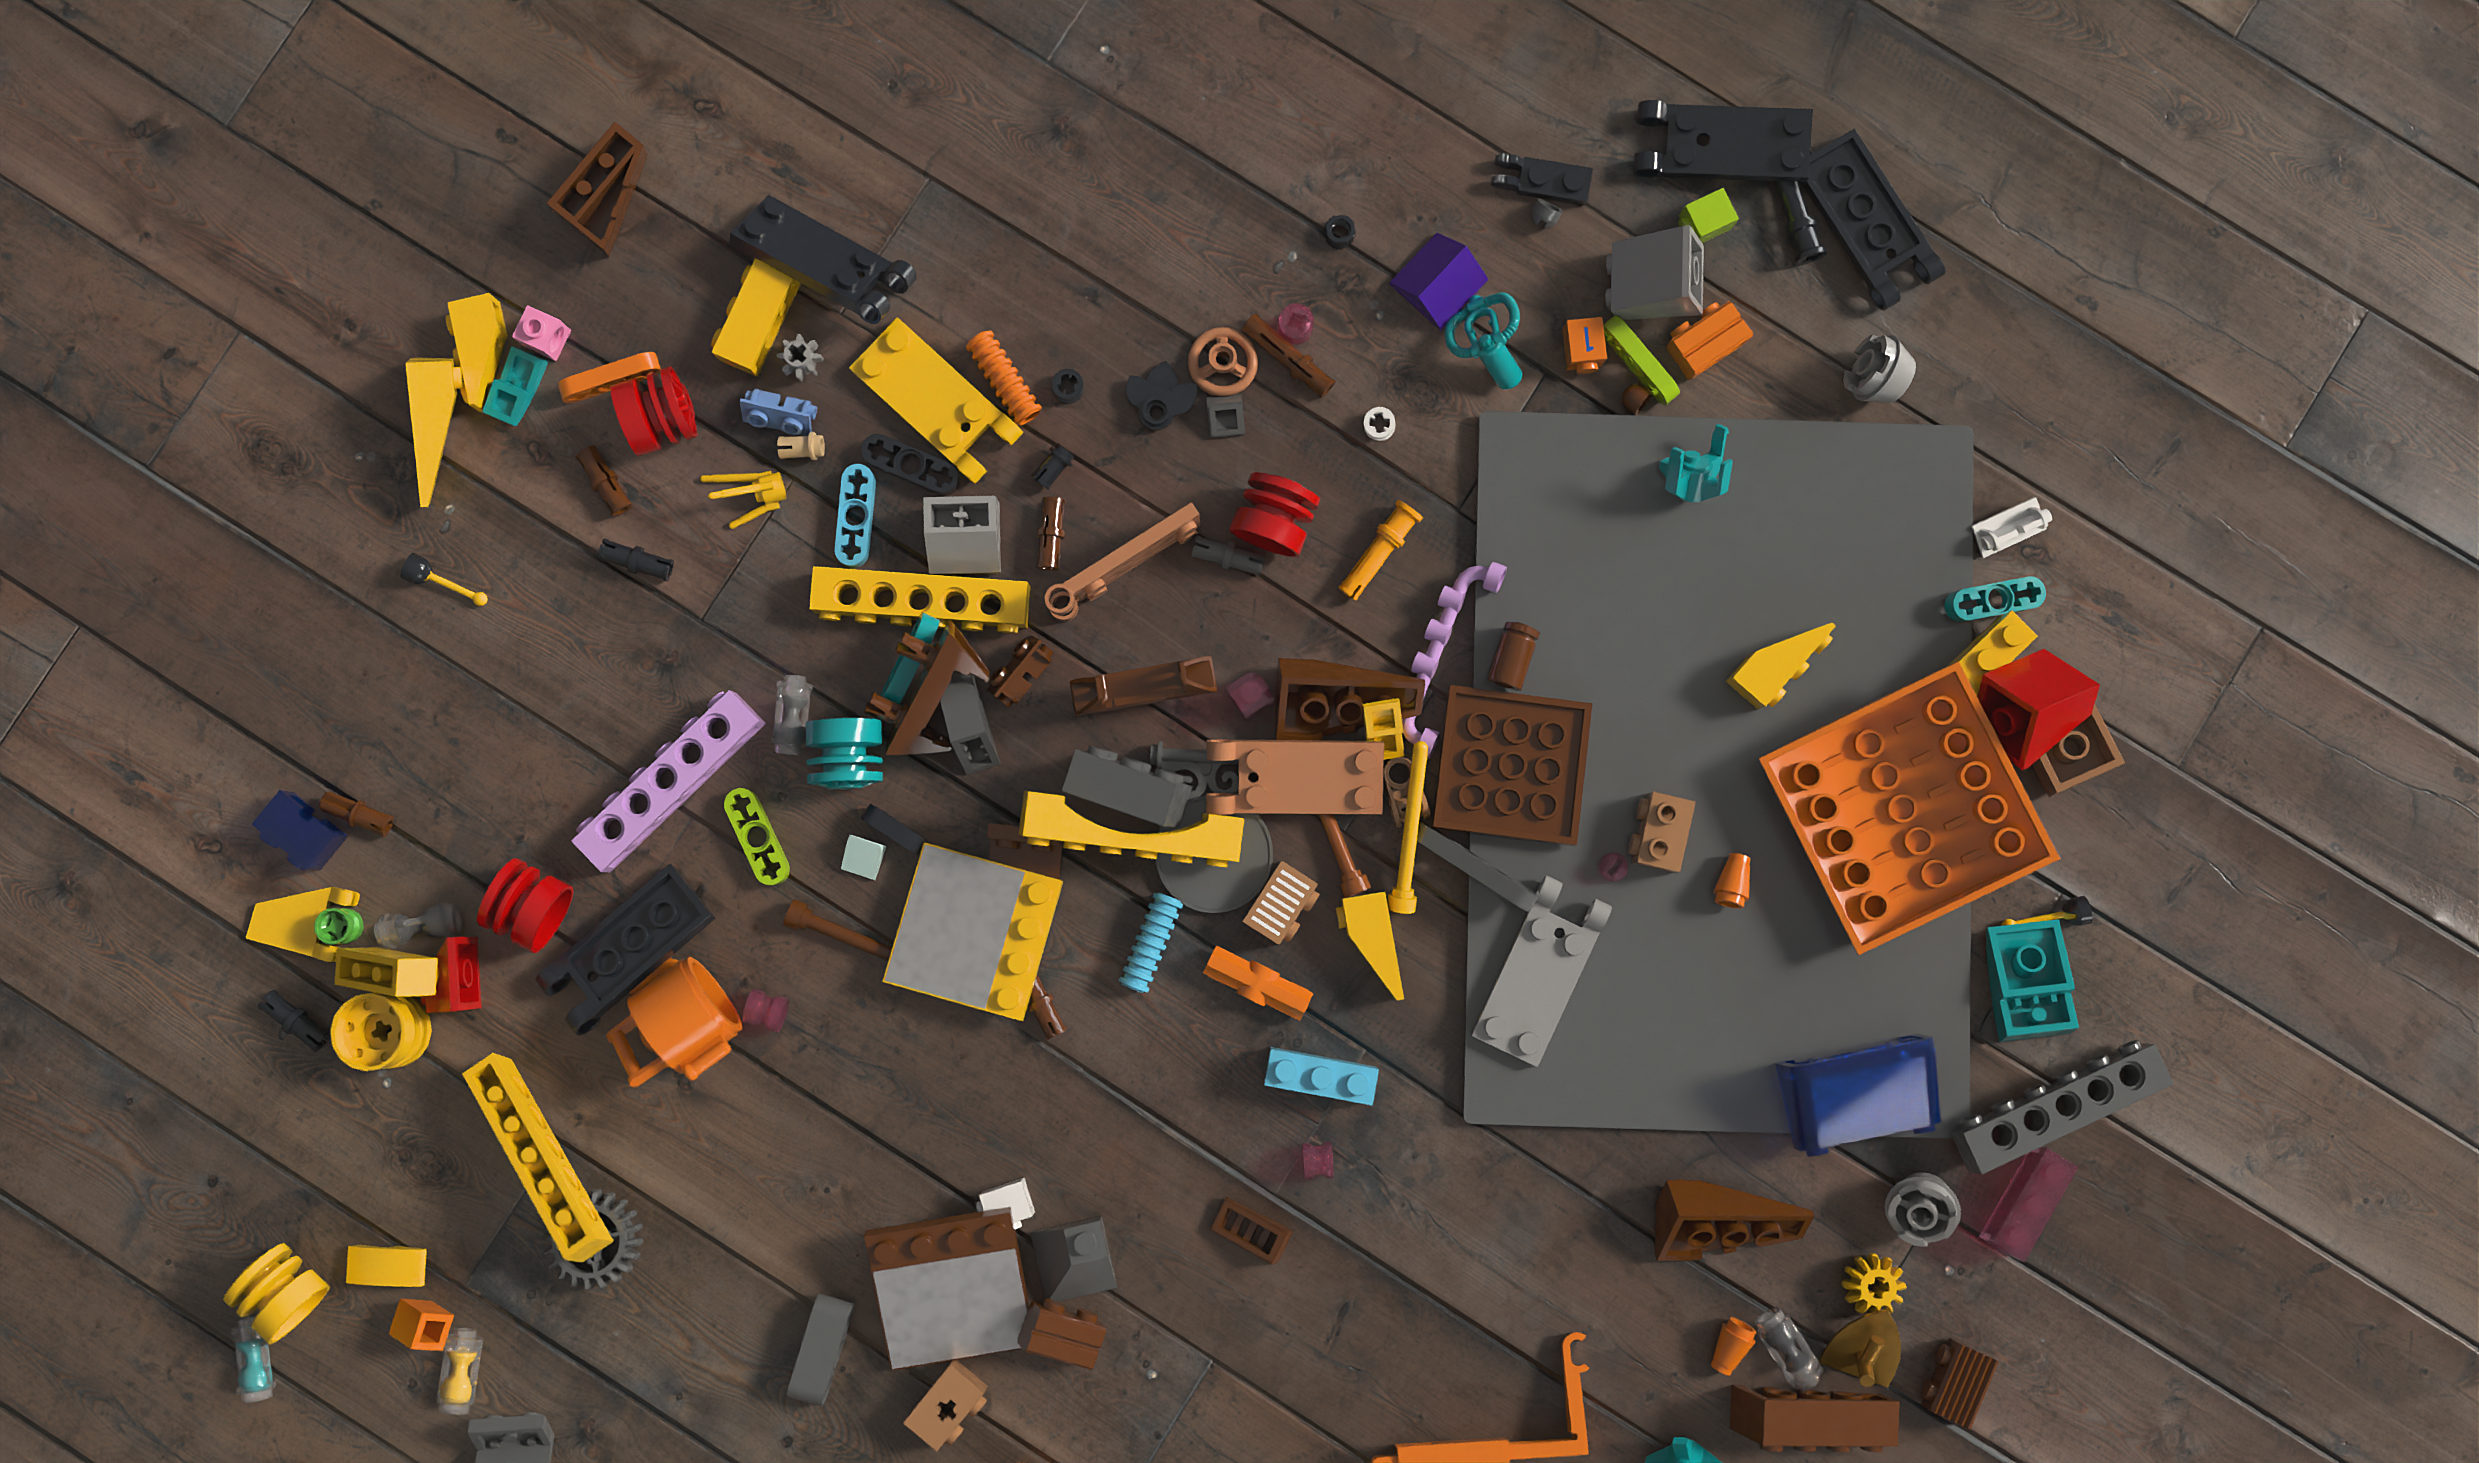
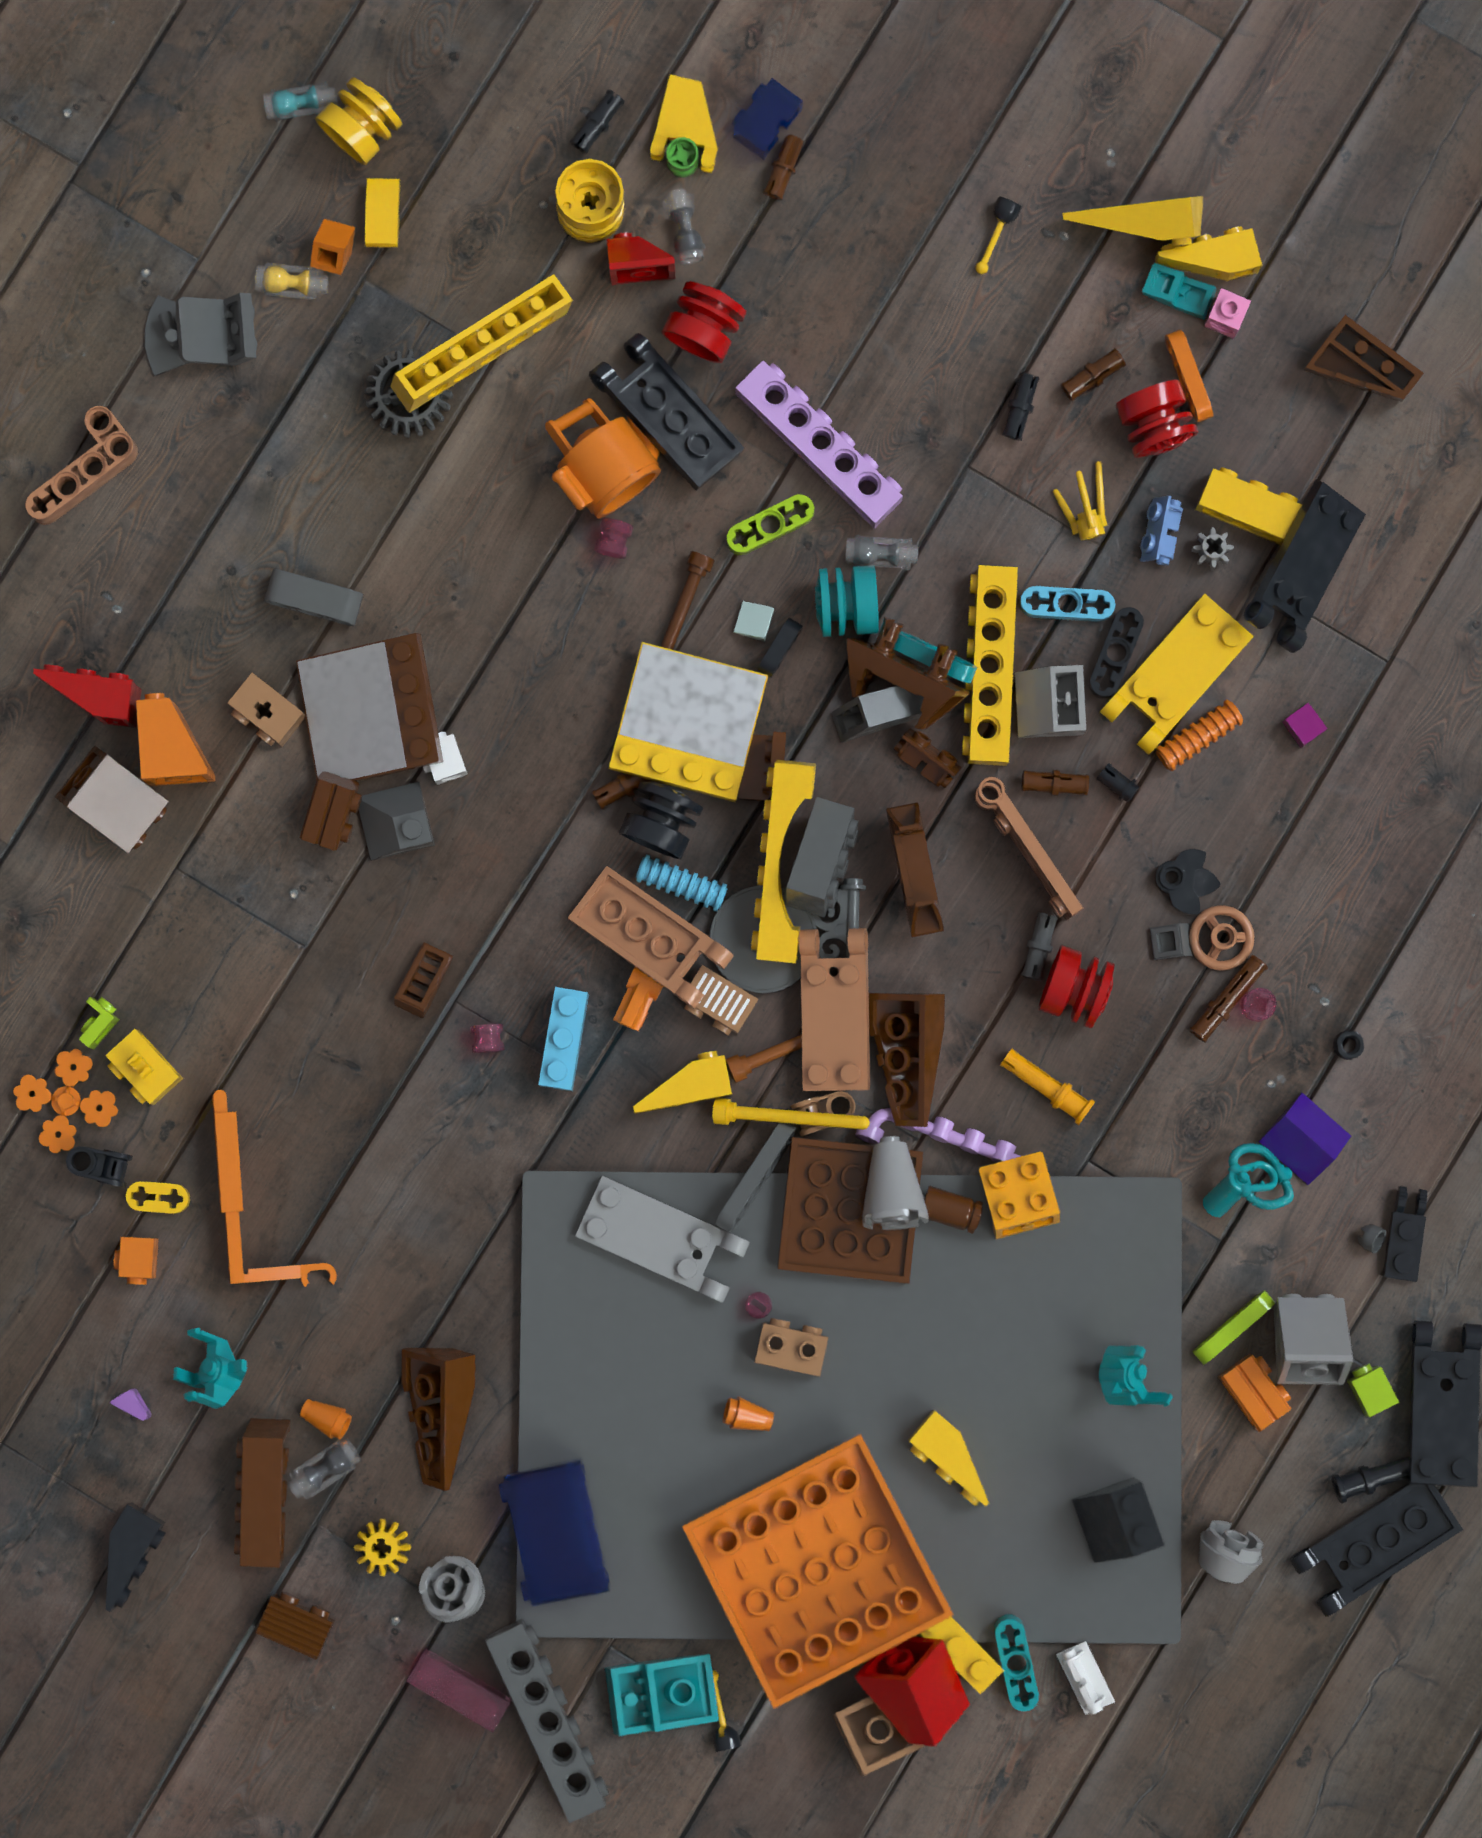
camera: 90 degrees right, 0 degrees up
(386, 971) = (642, 203): yellow brick -> none
(802, 446) = (1130, 553): tan pin -> none
(995, 267) = (1304, 725): none -> magenta slope
(1057, 384) = (1192, 805): black bush -> none
(1081, 963) = (661, 819): none -> black wheel
(1206, 983) = (646, 933): none -> nougat hinge
(1250, 694) = (910, 968): clear pink brick -> none
(1384, 724) = (884, 1091): yellow slope -> none
(1387, 417) = (1174, 1091): white bush -> none
(1492, 717) = (893, 1188): none -> light grey cone
(1498, 581) = (1019, 1195): none -> light orange bracket
(1584, 344) = (1246, 1275): orange brick -> none
(1636, 398) = (1198, 1324): reddish brown hinge -> none
(1851, 483) = (1118, 1521): none -> black slope
(1866, 1349) = (325, 1540): pearl gold shield -> none

